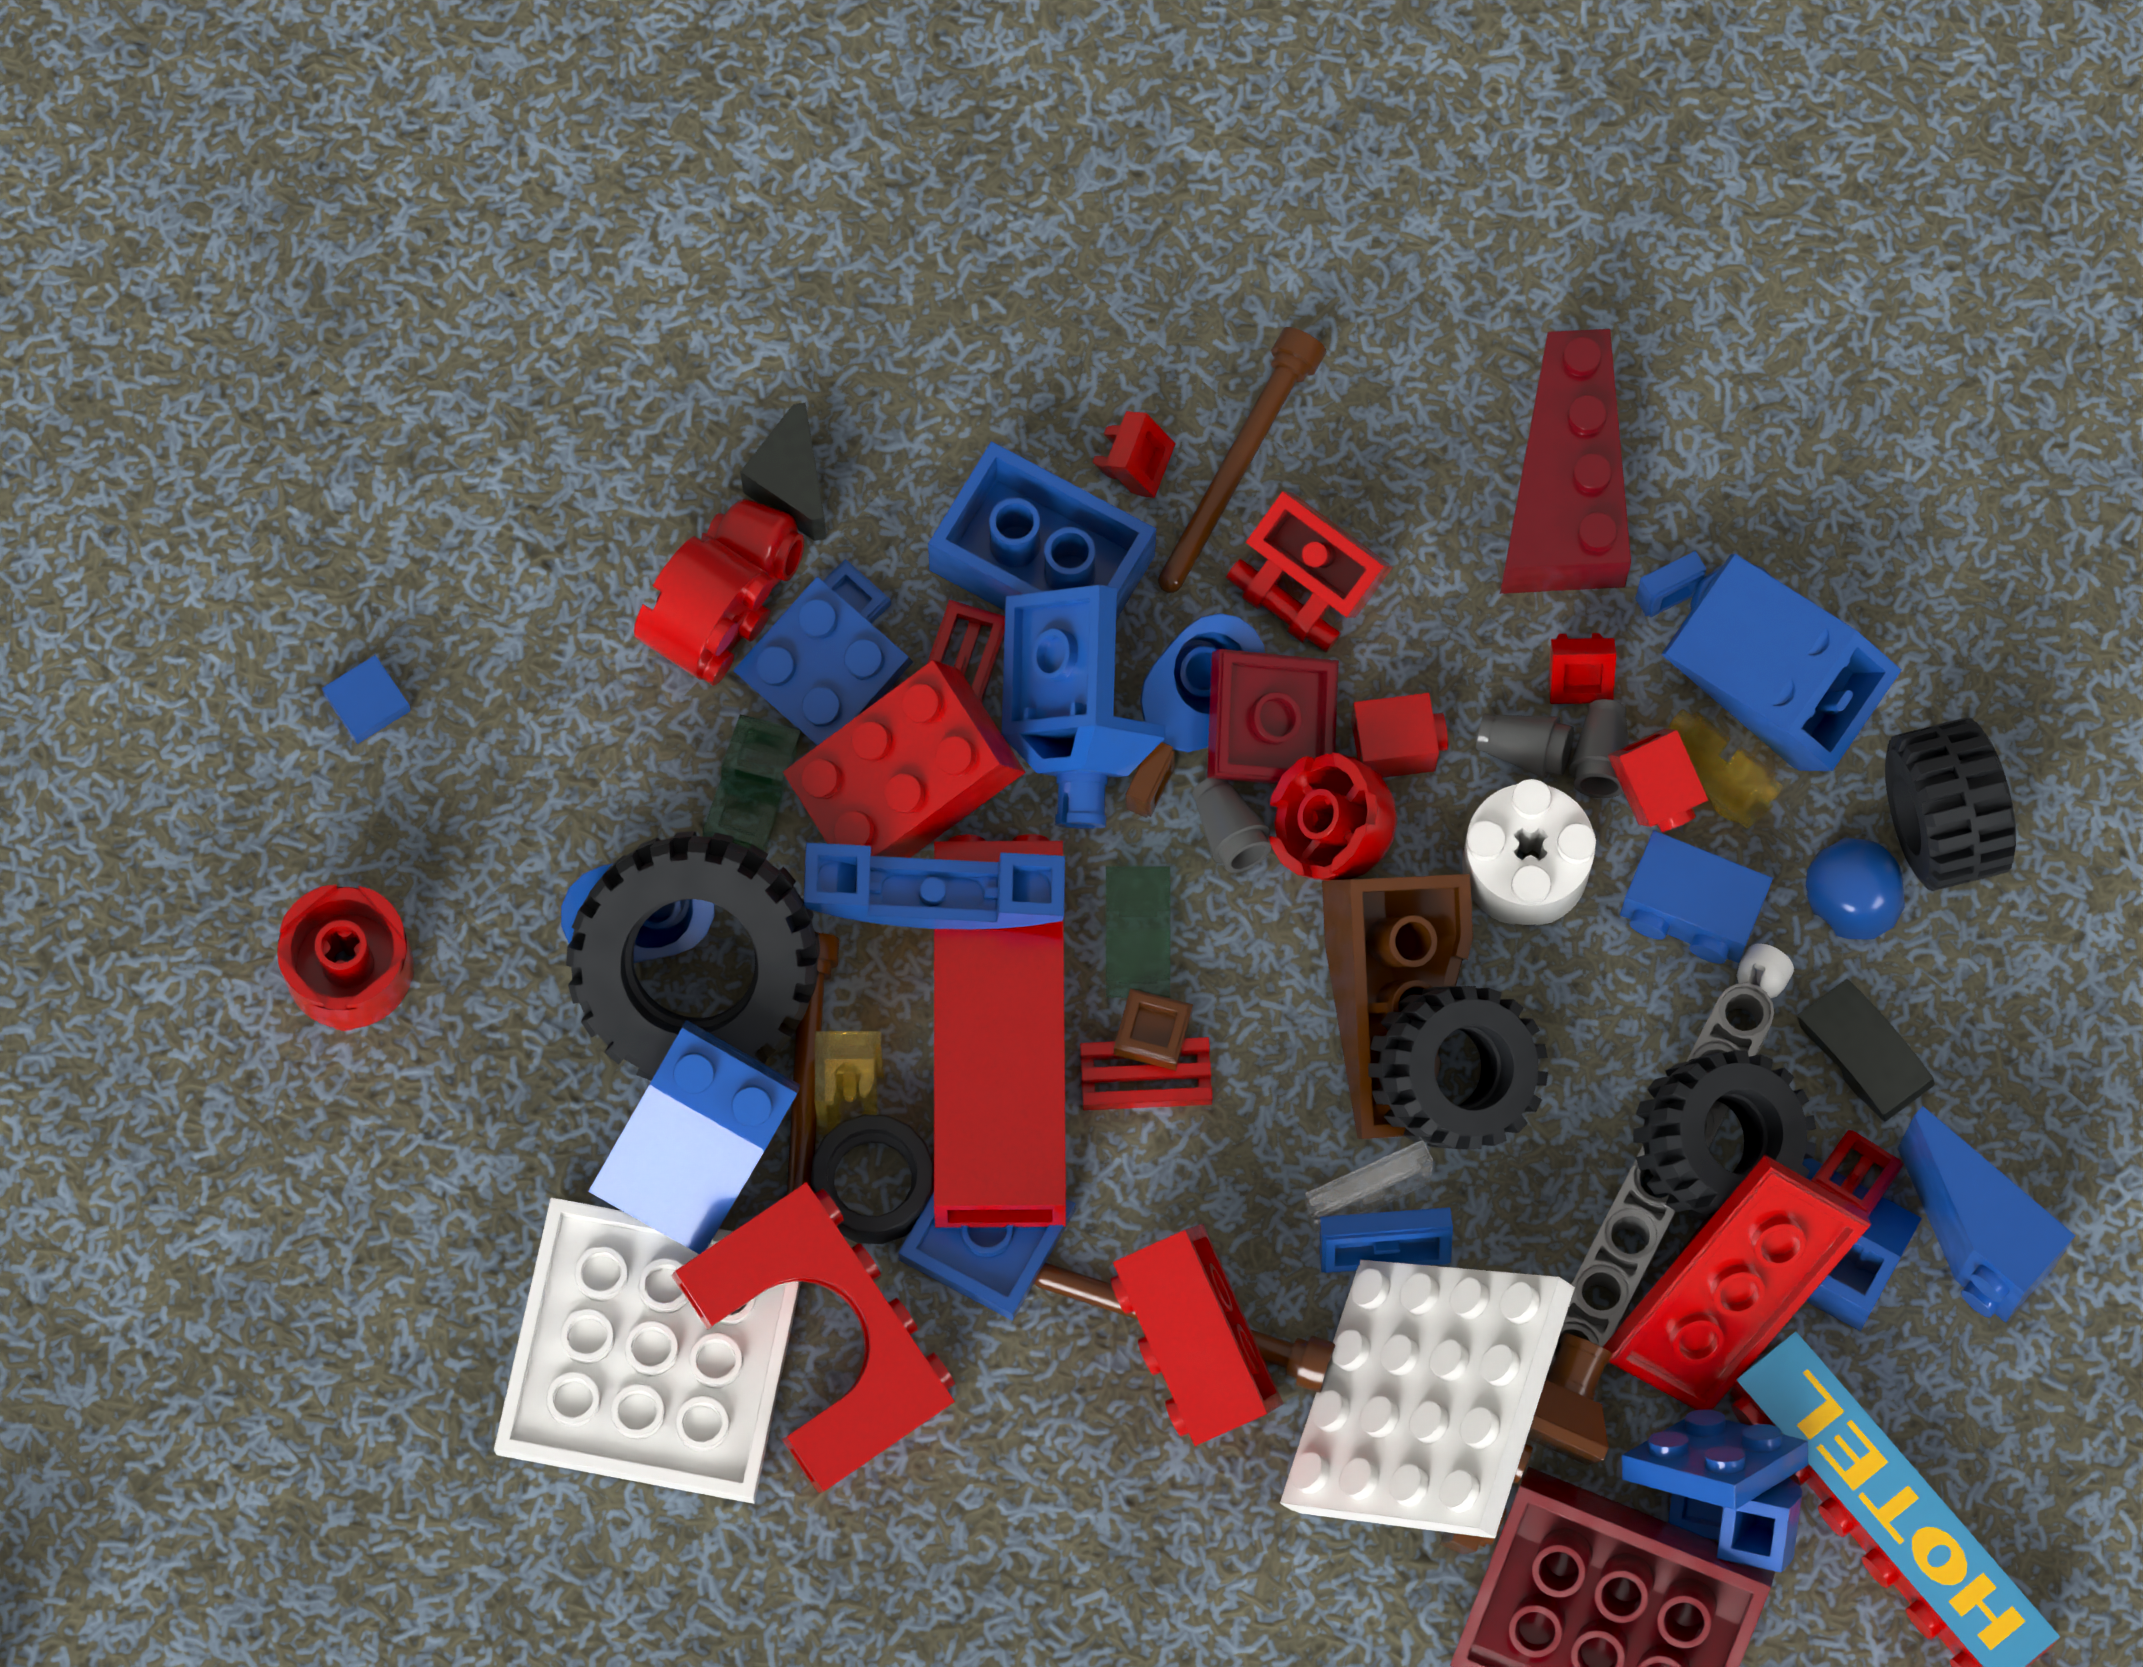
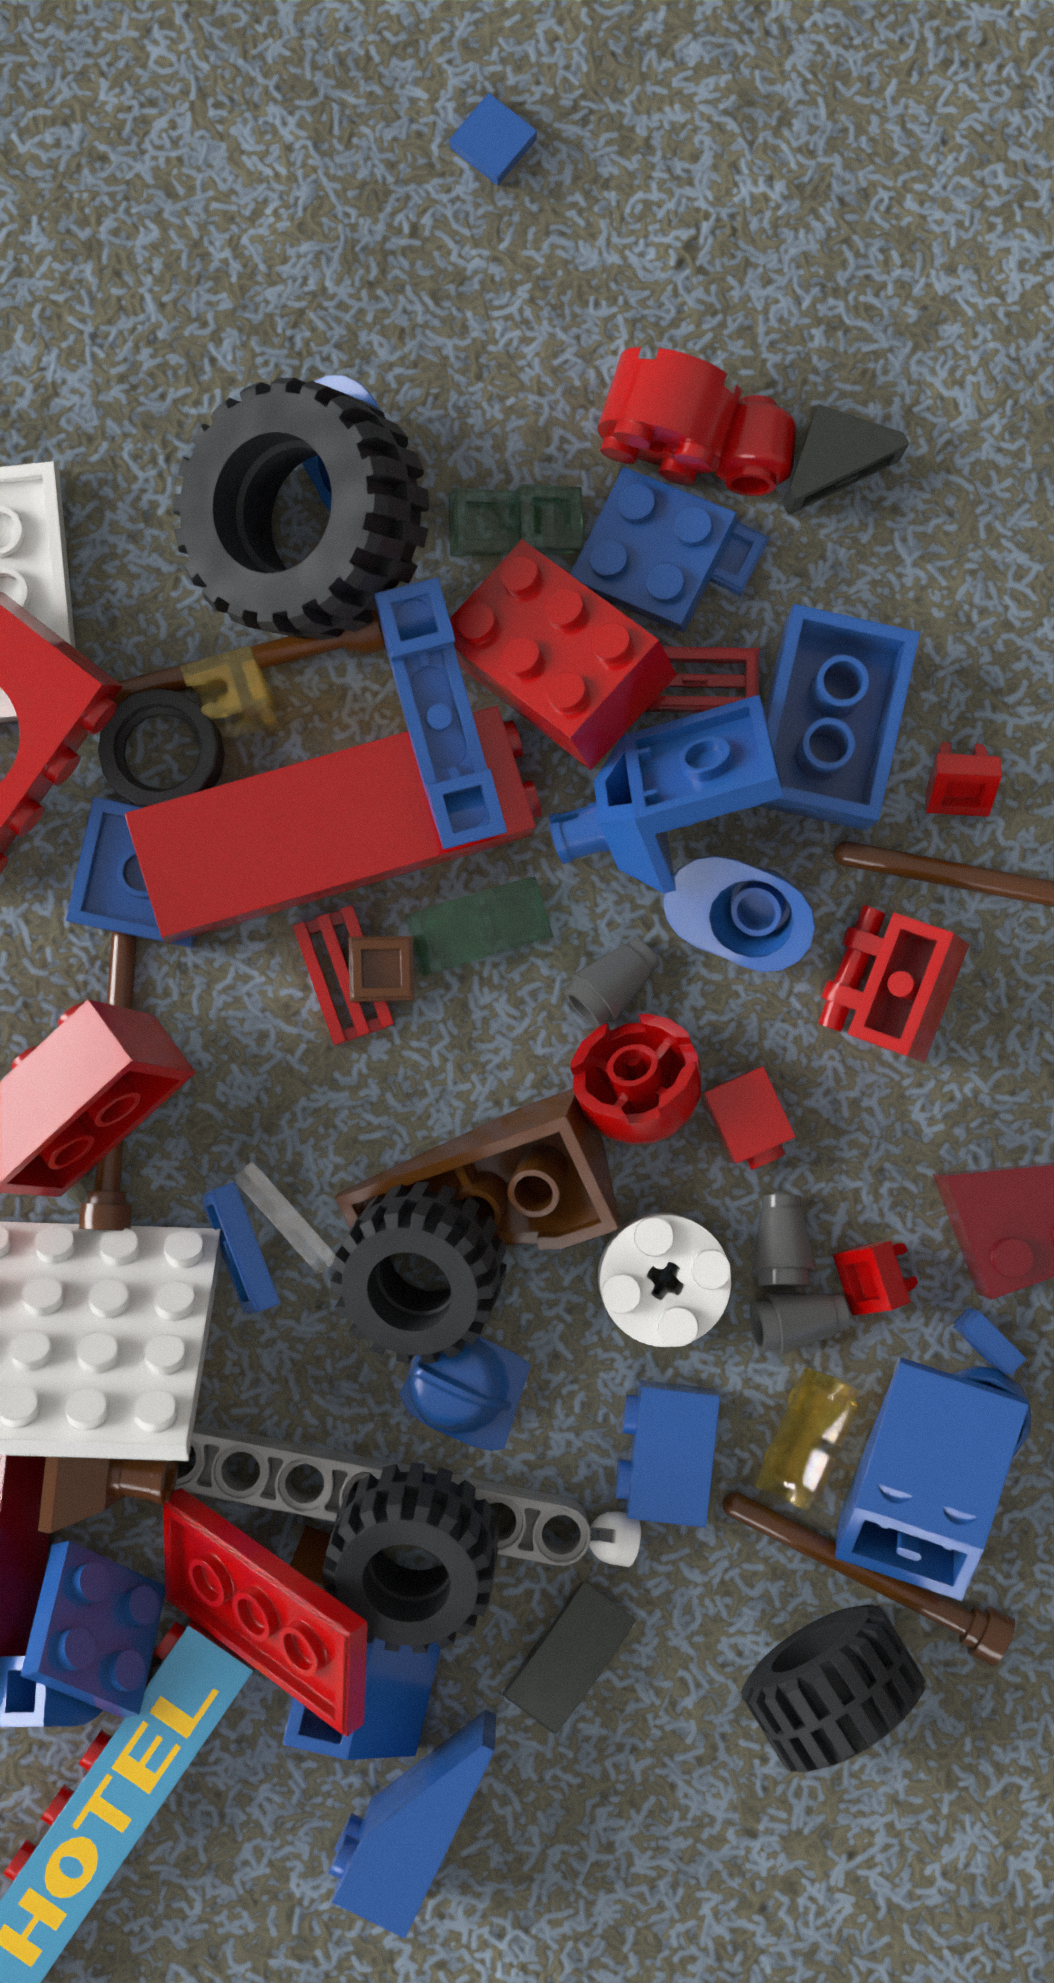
camera: 75 degrees right, 15 degrees up
(360, 925) = (247, 176): red brick -> none
(694, 1138) = (129, 567): slope -> none
(1150, 780) = (629, 894): reddish brown tile -> none
(1269, 713) = (729, 989): dark red plate -> none
(1587, 1077) = (468, 1394): none -> blue piece
(1659, 780) = (770, 1389): red brick -> none
(1856, 888) = (732, 1603): blue hair -> none
(1871, 1155) = (391, 1679): red tile -> none
(1942, 670) = (983, 1631): none -> reddish brown piece

